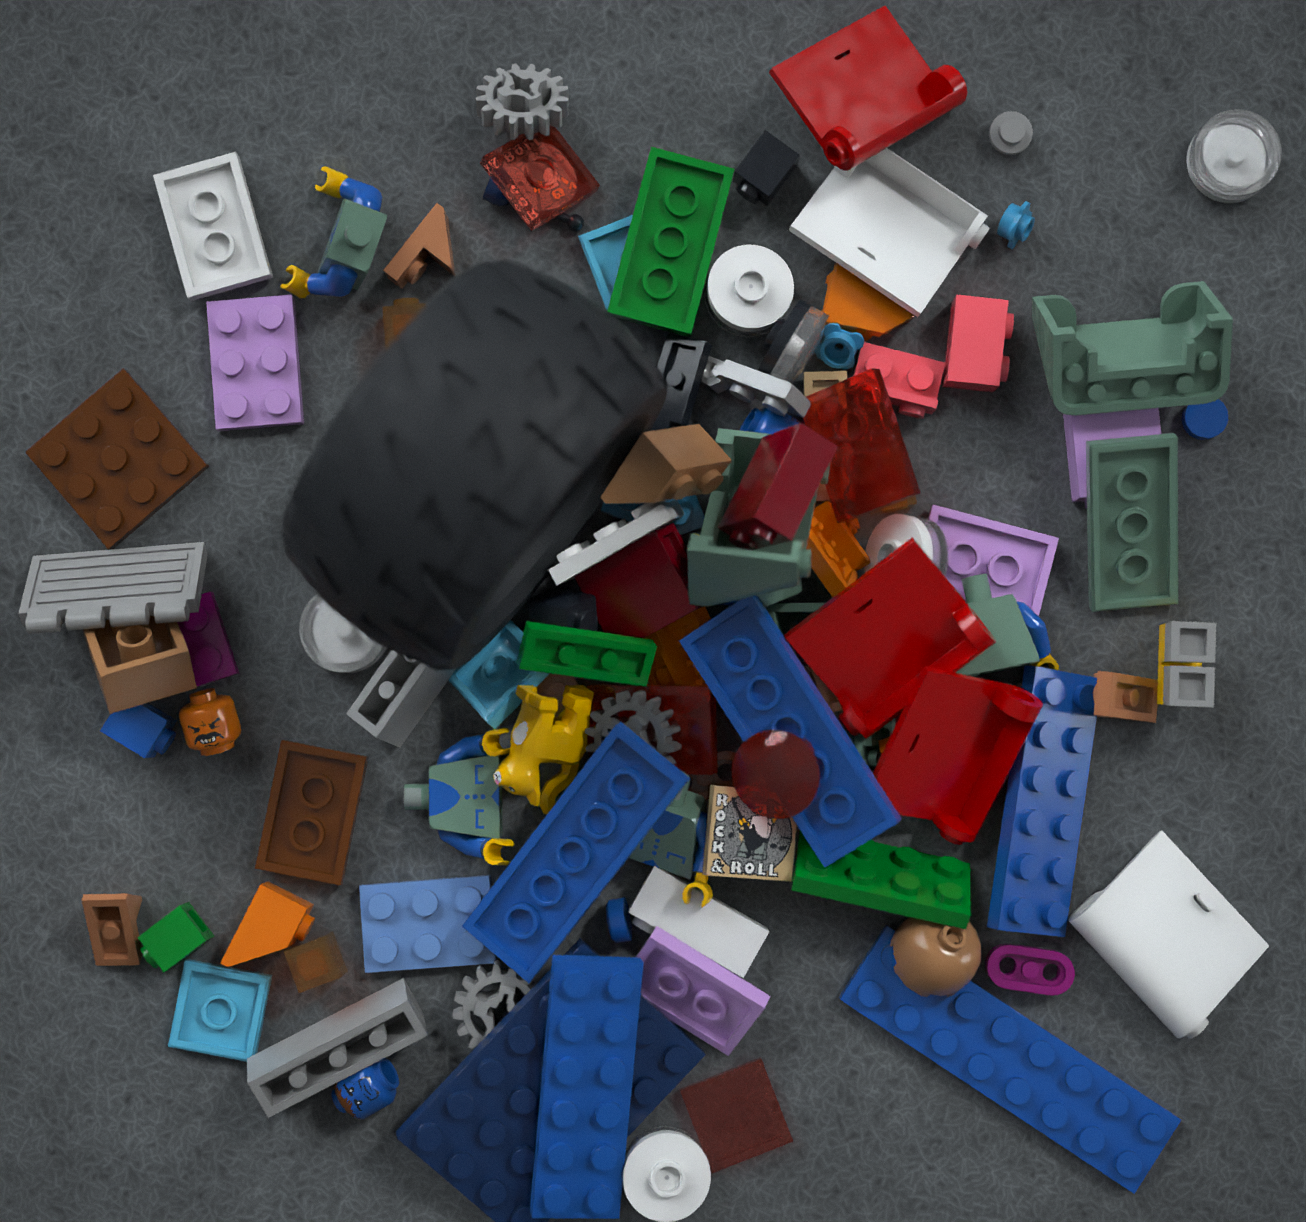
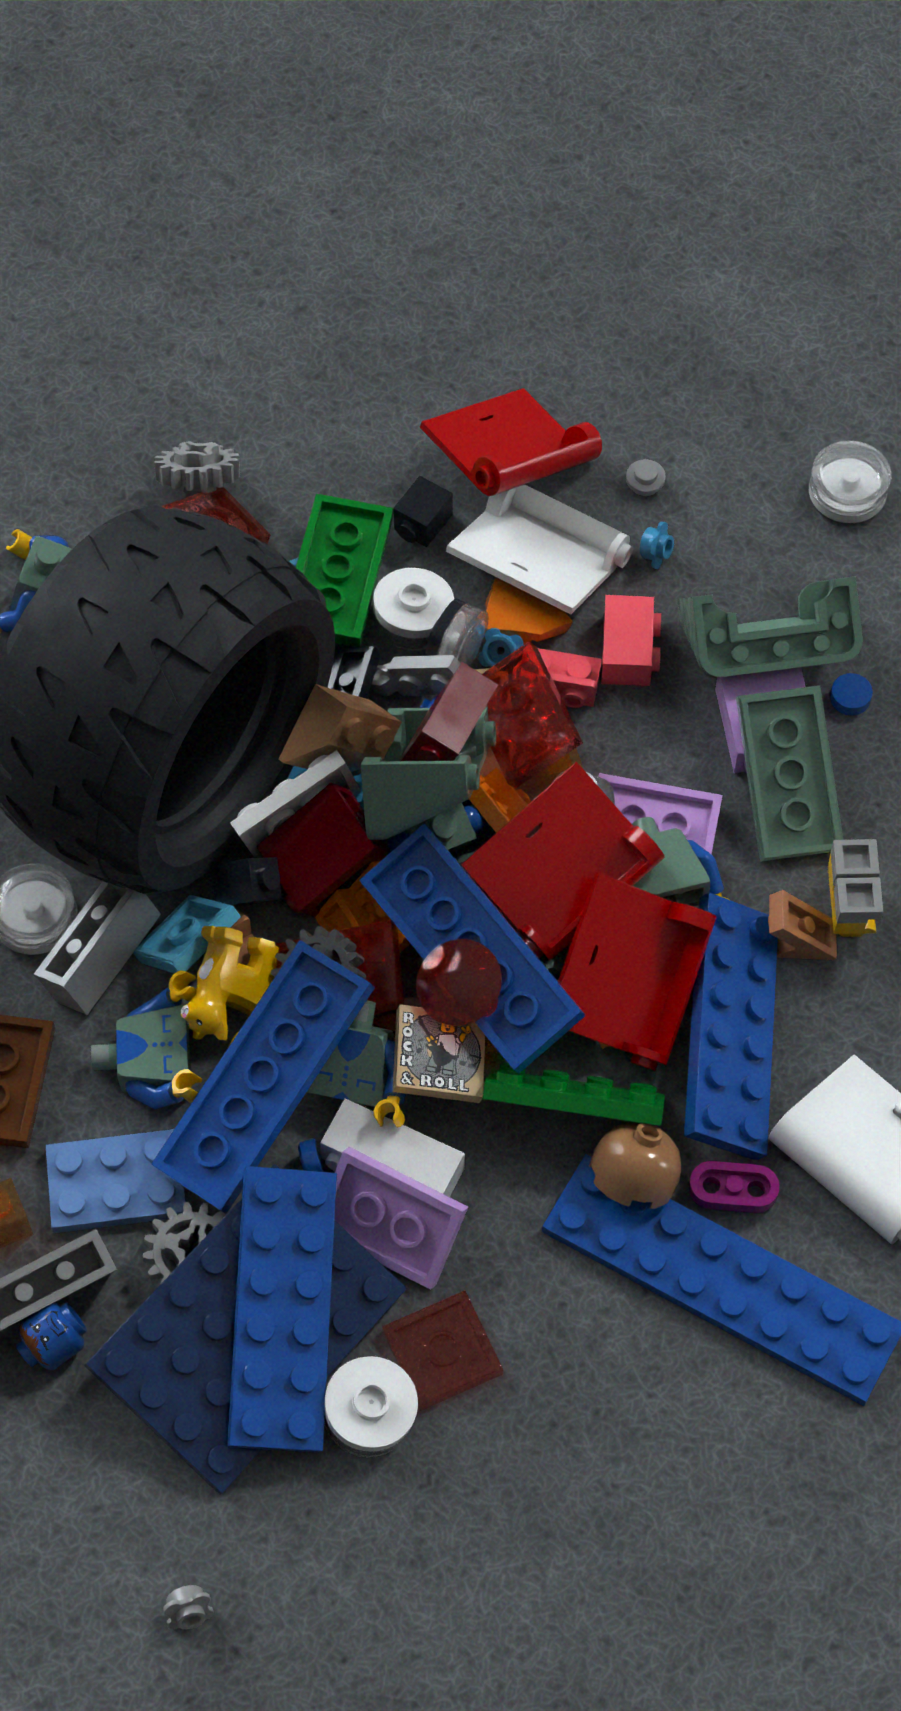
camera: 10 degrees left, 25 degrees down
(586, 654) = (269, 897): green plate -> none

